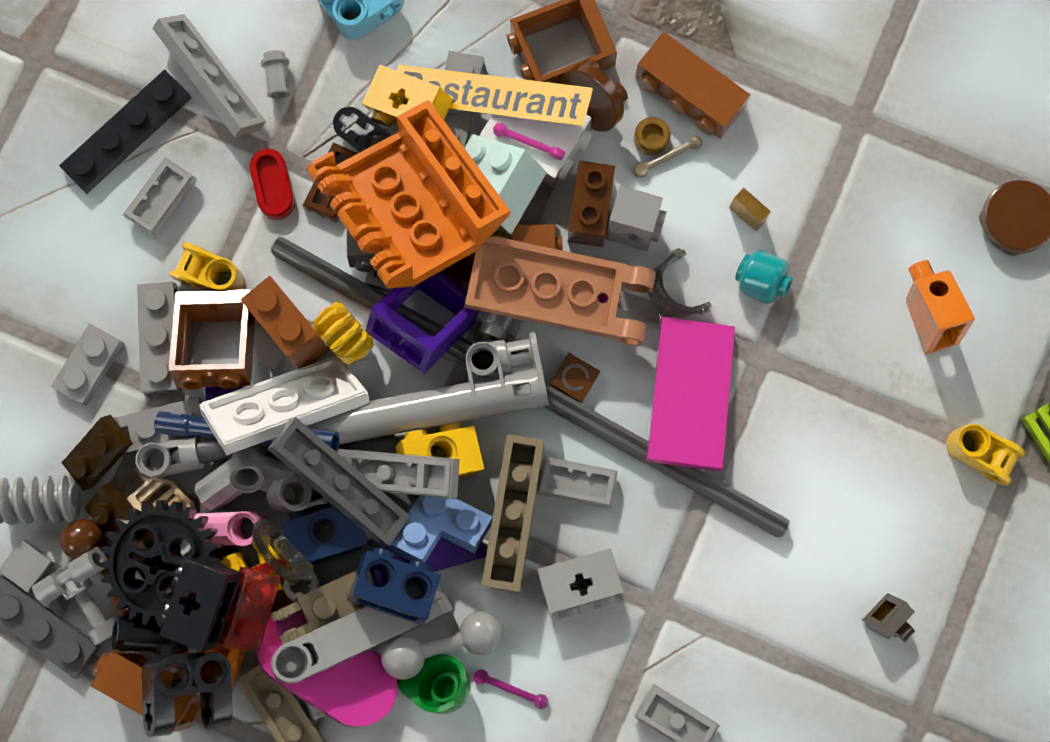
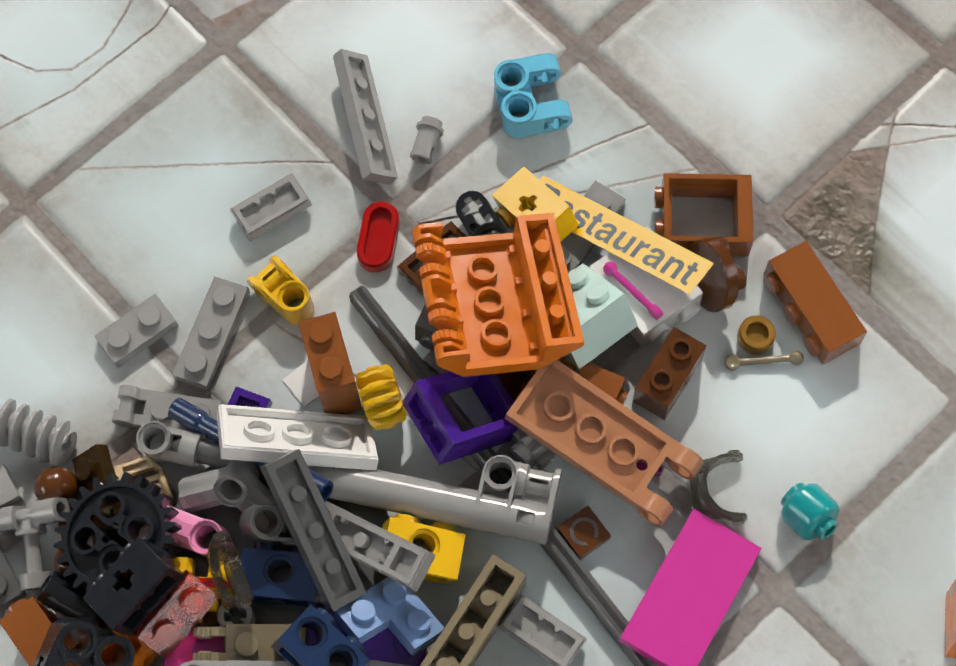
camera: 25 degrees right, 10 degrees down
(97, 452) = (107, 412): dark brown plate -> none
(125, 131) = (267, 137): black plate -> none
(210, 307) = (258, 319): dark orange window -> none
(636, 218) = (705, 403): light grey brick -> none
(750, 209) = (823, 441): pearl gold tile -> none

